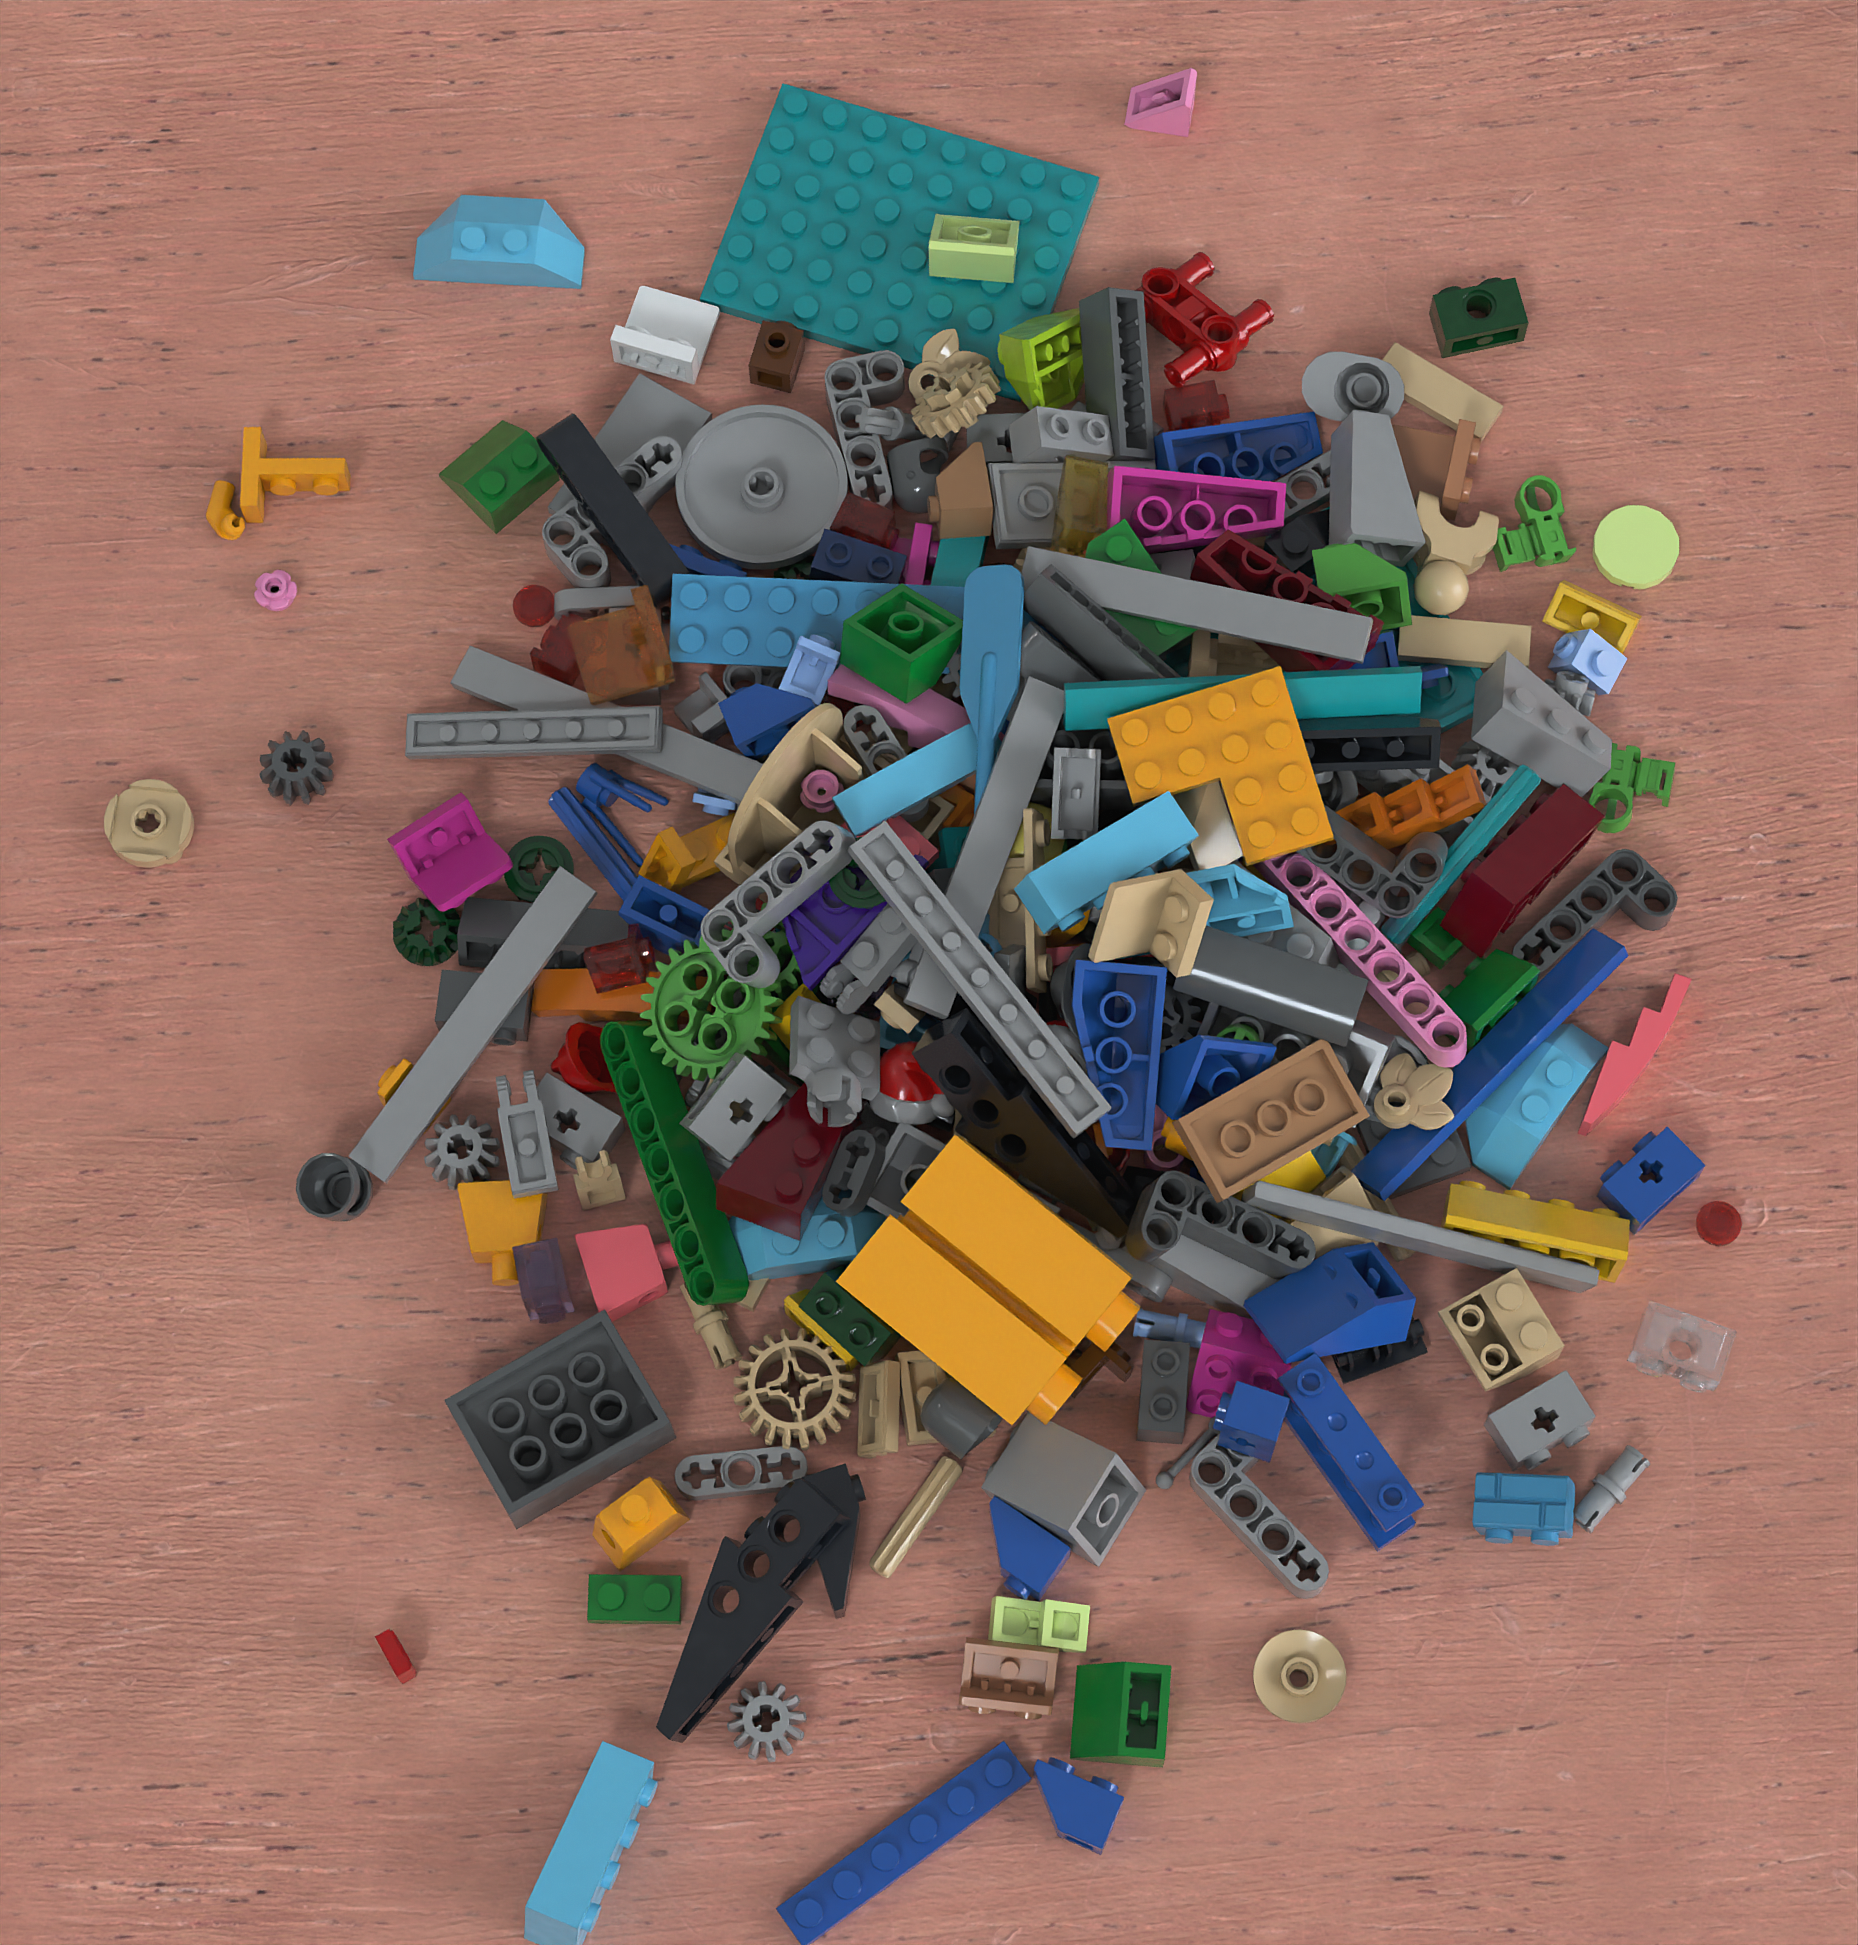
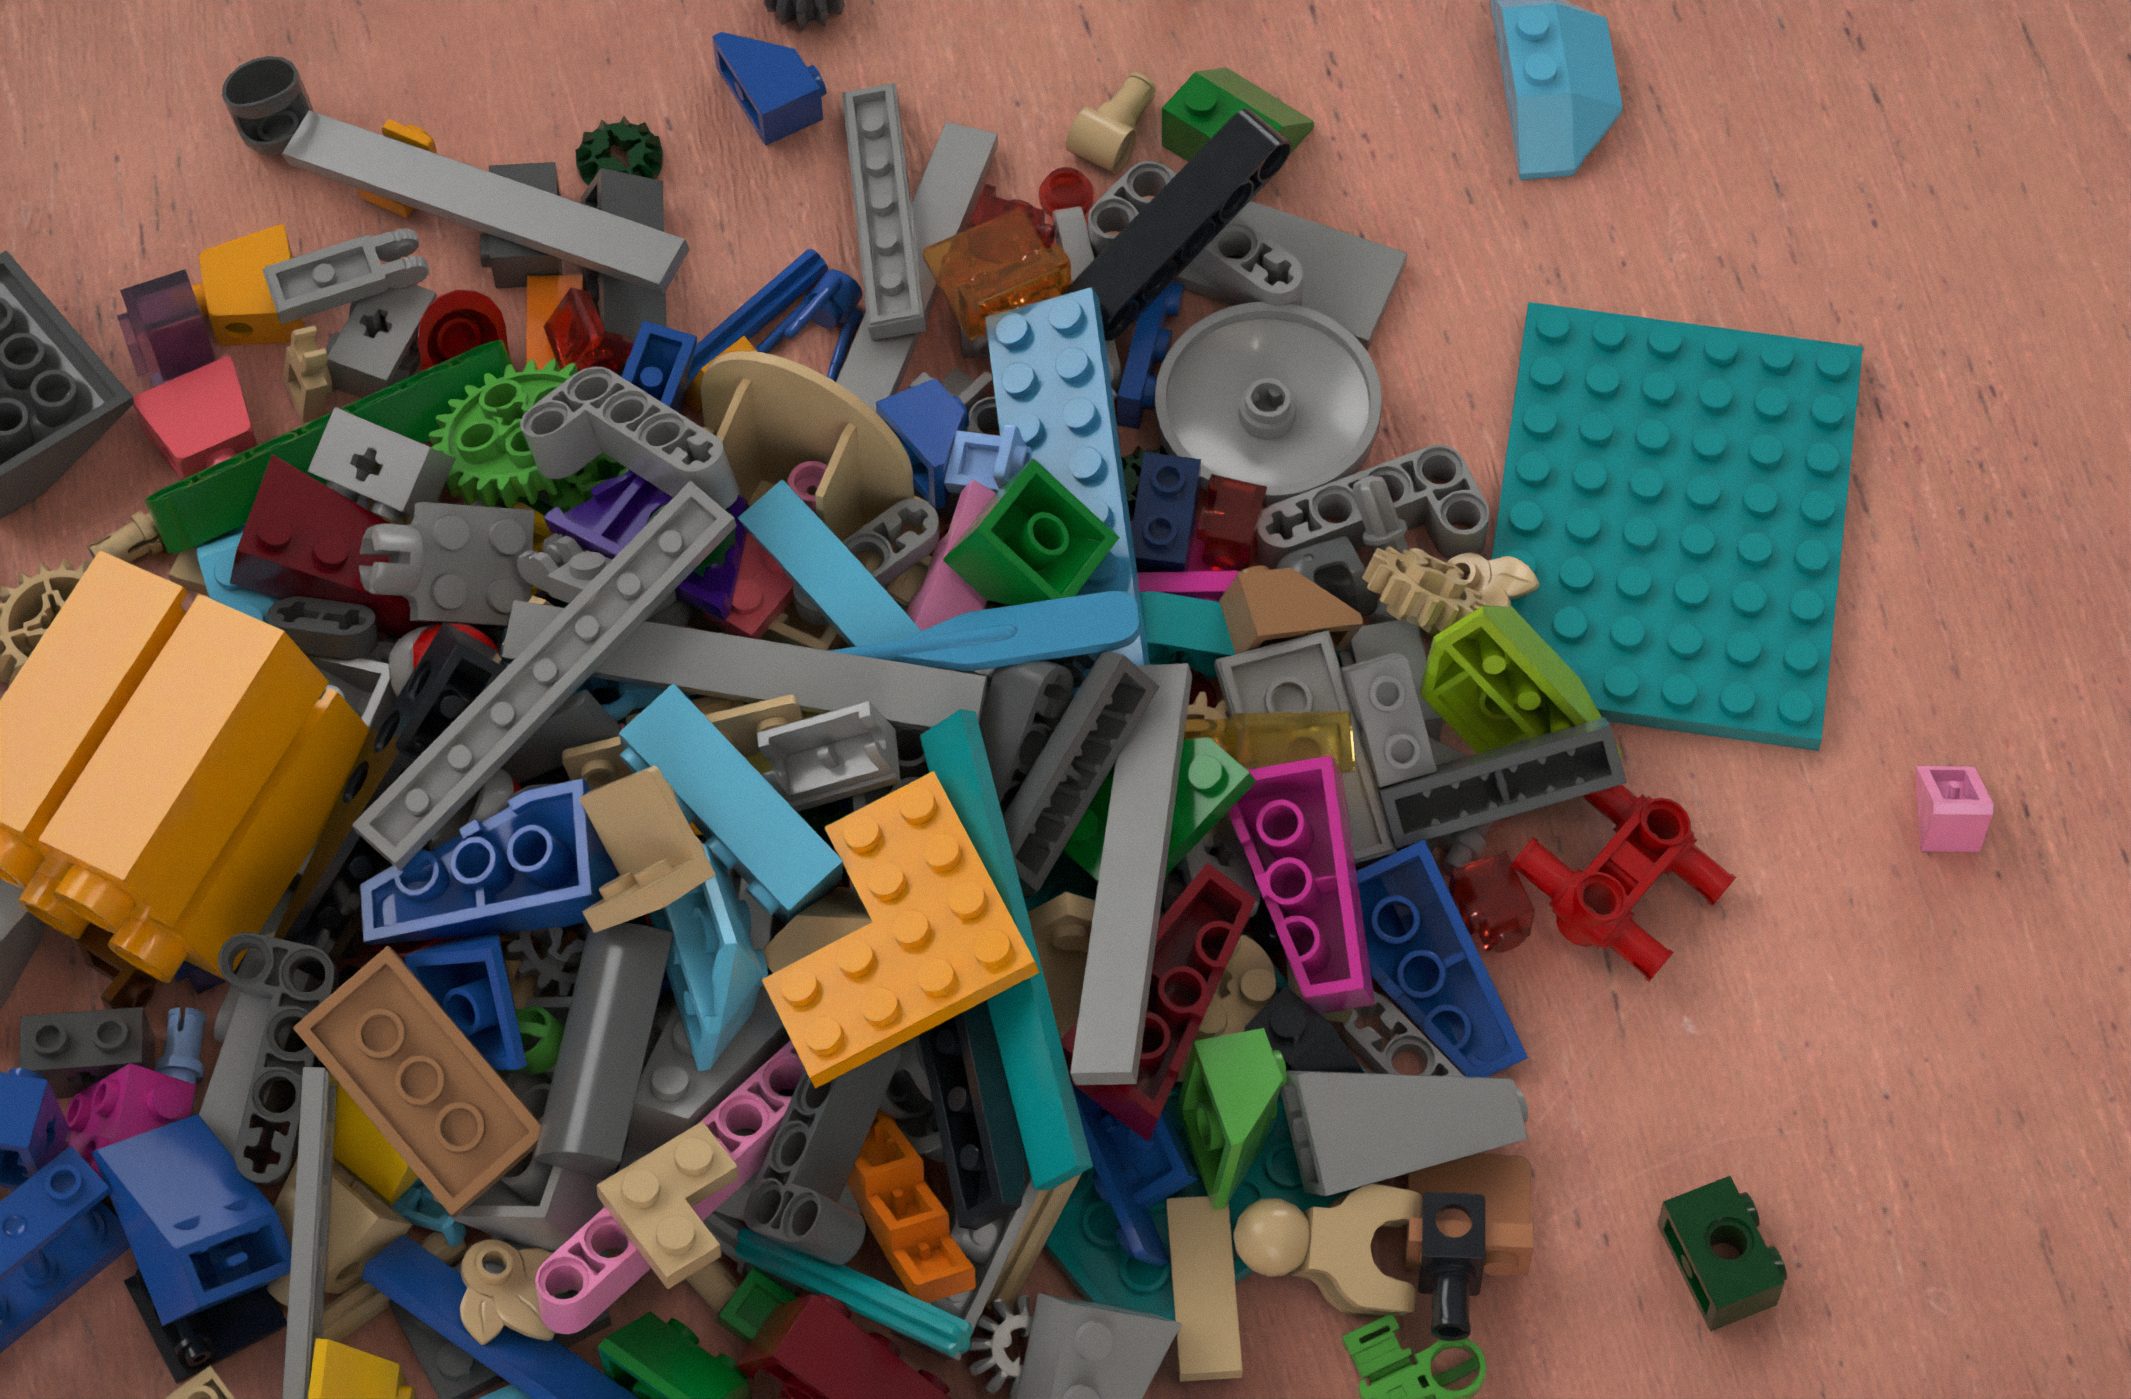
camera: 80 degrees right, 10 degrees down
(386, 806) = (770, 85): none -> blue slope
(449, 854) = (715, 154): dark pink bracket -> none
(479, 1150) = (331, 221): light grey gear -> none
(485, 567) = (1110, 132): none -> tan pin
(524, 857) = (736, 248): dark green gear -> none
(665, 334) = (1467, 272): white bracket -> none
(777, 355) = (1465, 398): reddish brown brick -> none
(973, 248) = (1667, 587): yellowish green slope -> none
(1348, 382) = (1565, 1091): light grey piece -> none
(1397, 965) = (656, 1200): none -> tan plate
(1442, 393) = (1596, 1220): tan tile -> none
(1476, 477) = (1451, 1266): none -> black bracket

